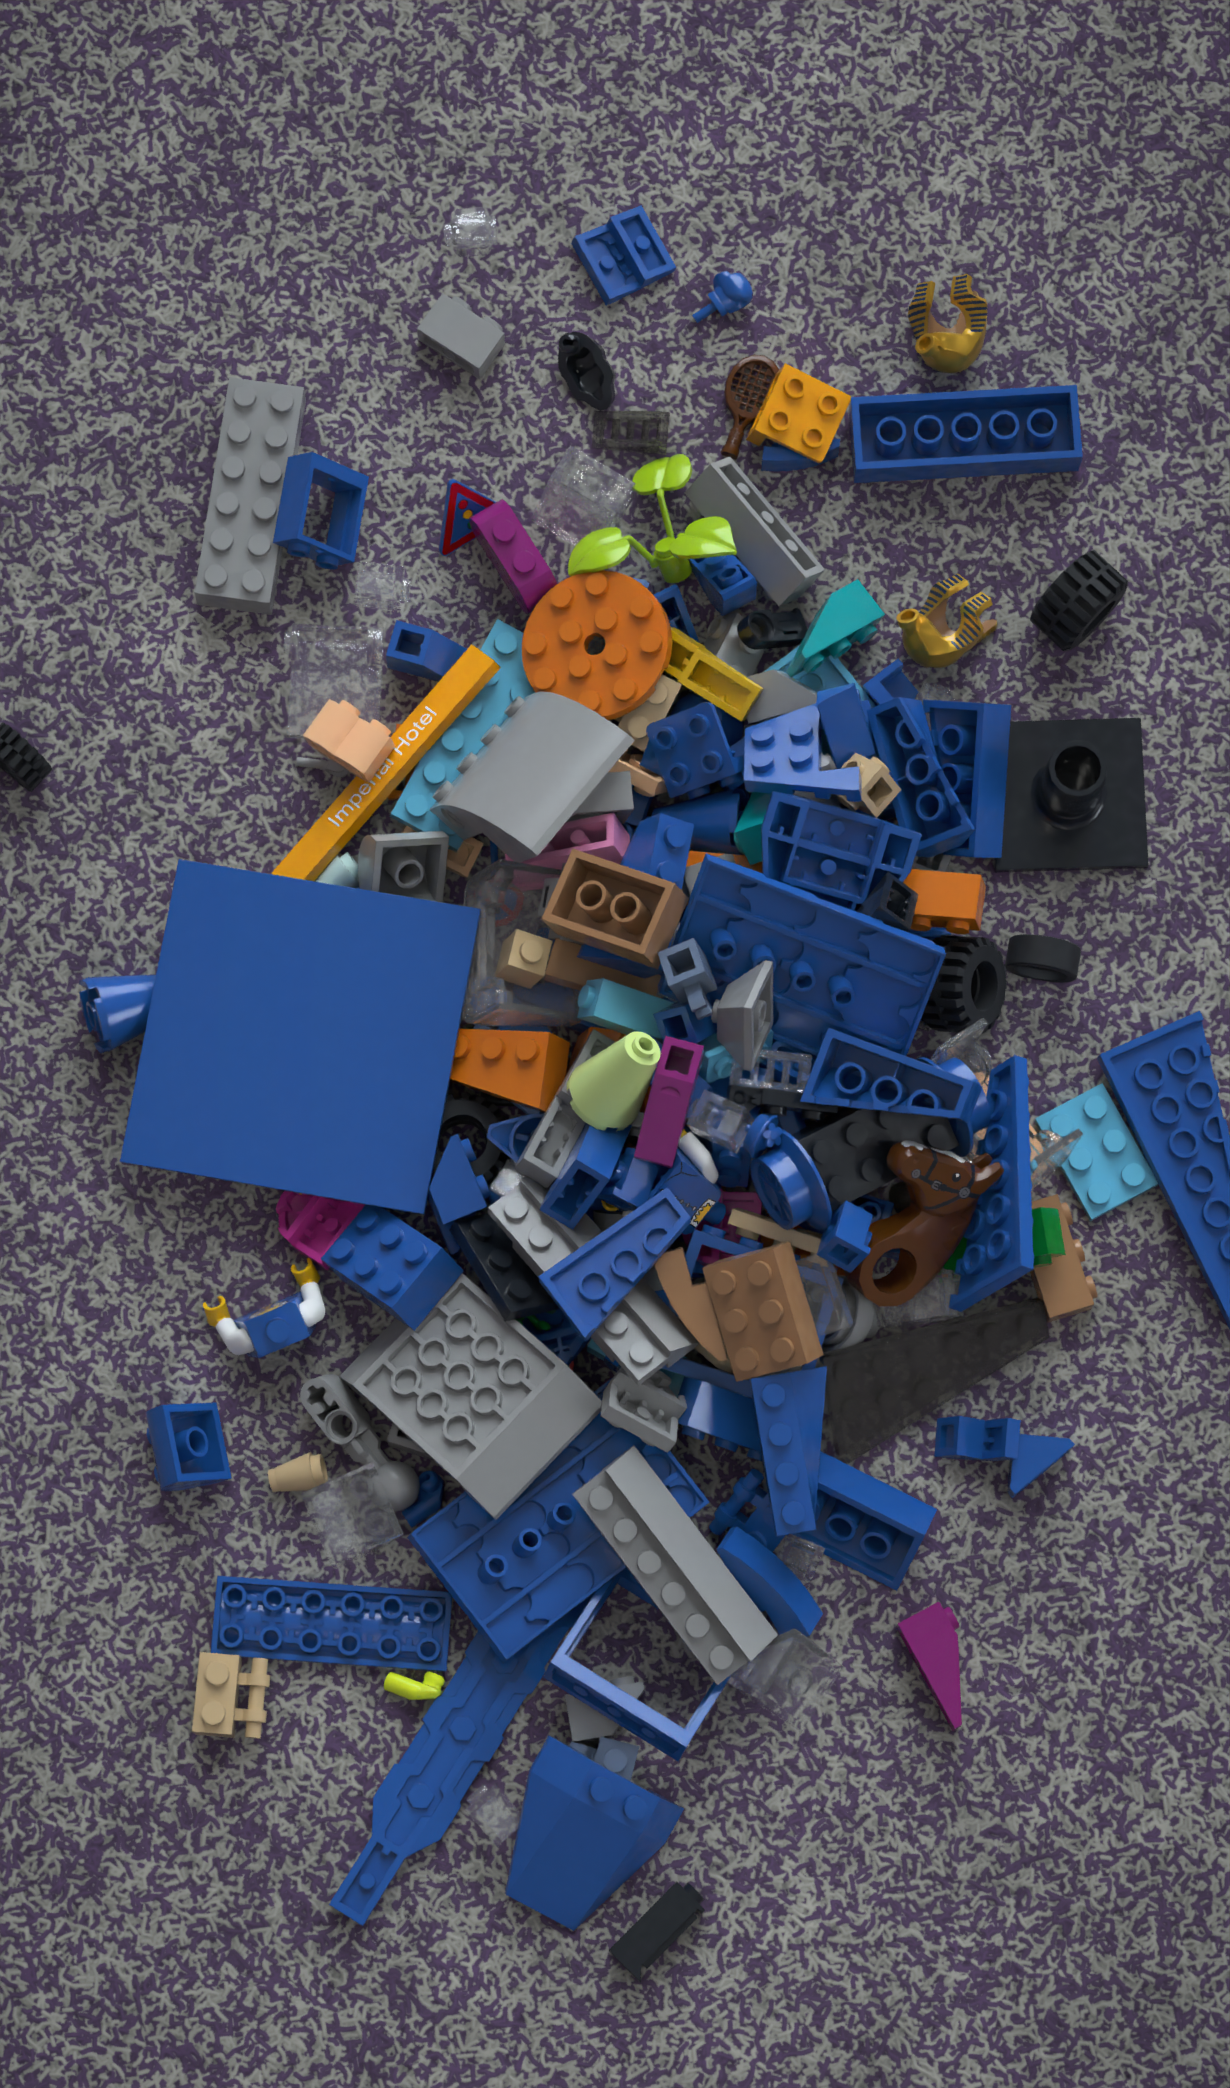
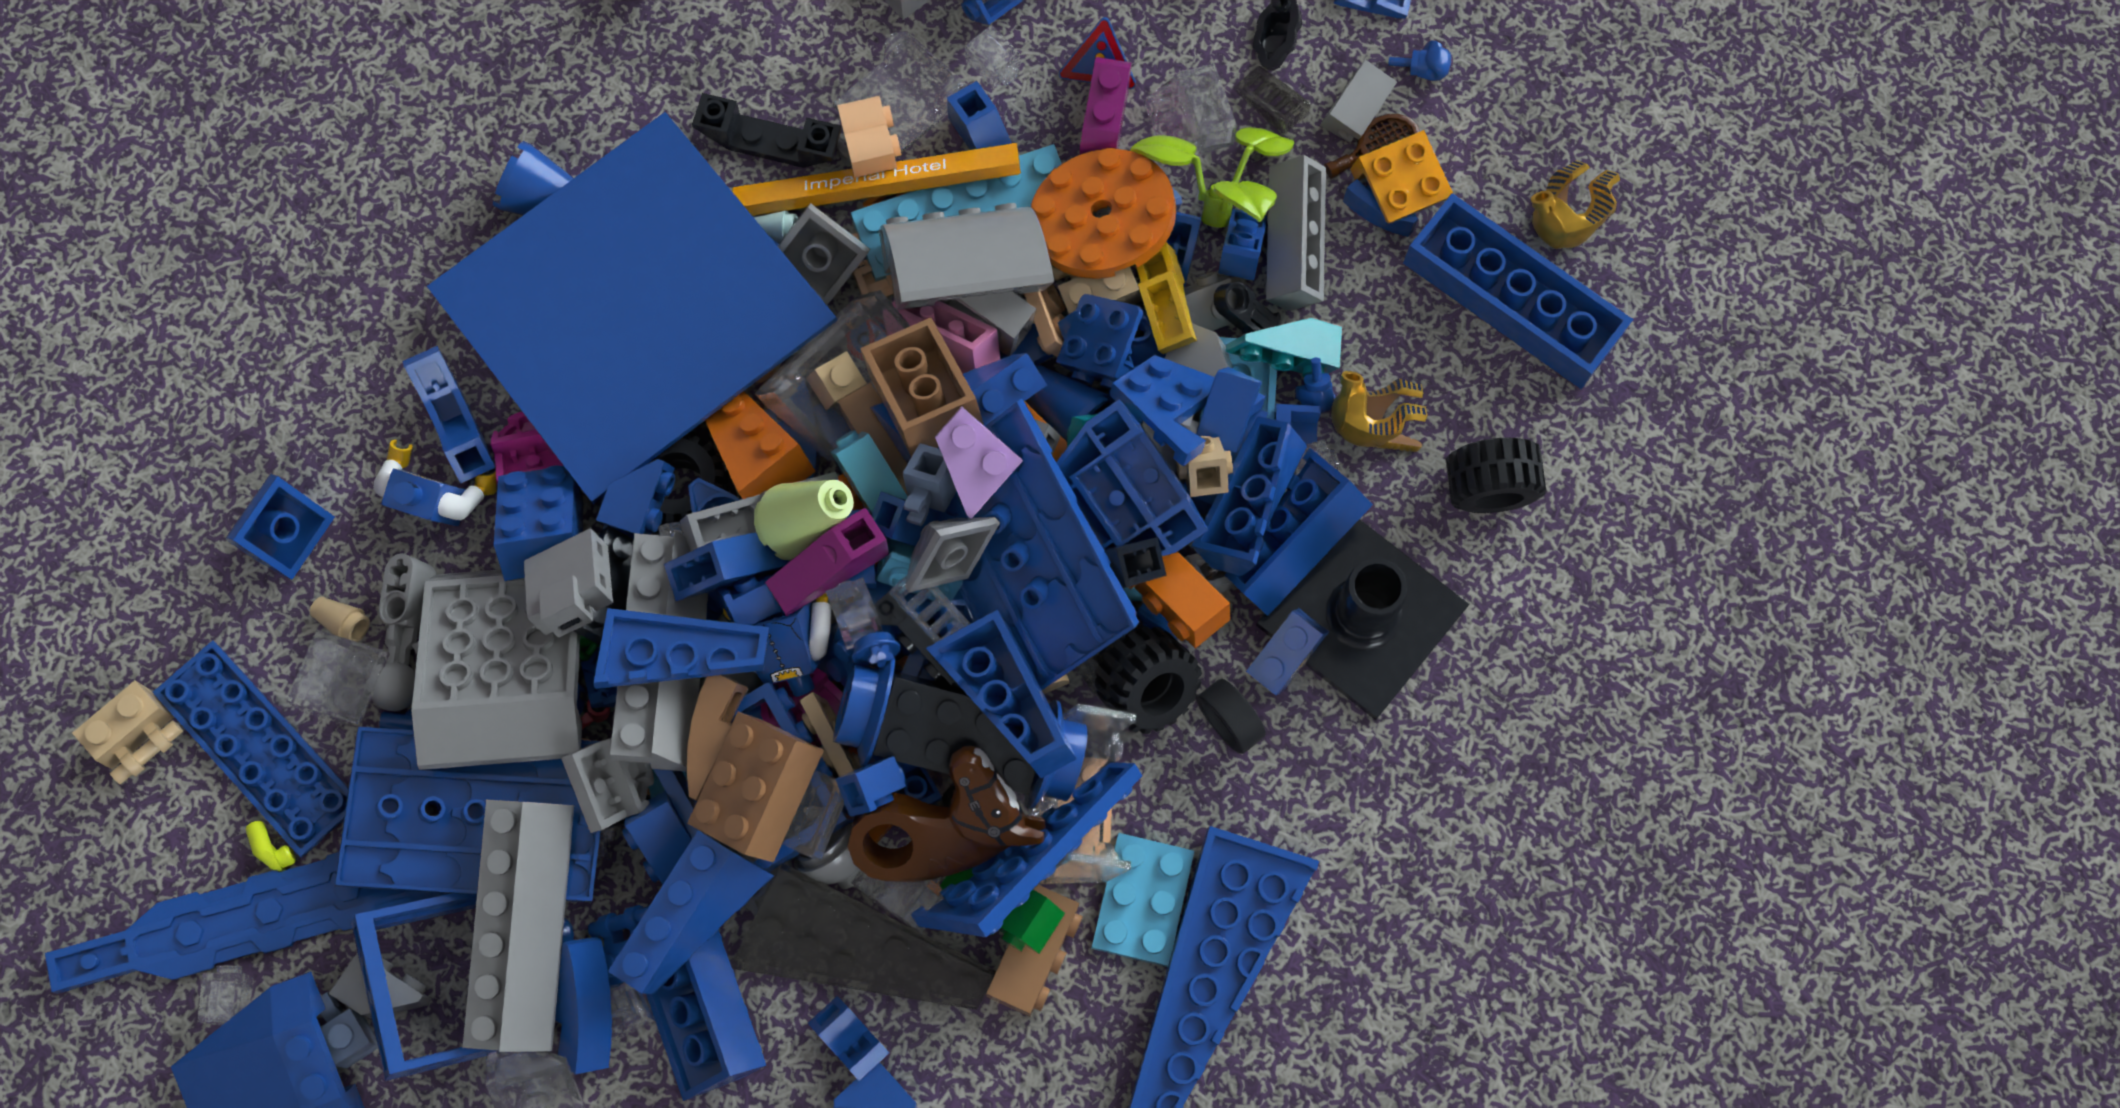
camera: 40 degrees right, 5 degrees down
(237, 1248) = (450, 414): none -> blue arch
(265, 807) = (805, 147): none -> black slope
(478, 1288) = (567, 583): none -> light grey piece
(704, 377) = (1358, 102): none -> light grey hinge
(716, 930) = (974, 459): none -> lavender wing
(882, 647) = (1316, 388): none -> blue piece
(1041, 872) = (1287, 651): none -> blue brick

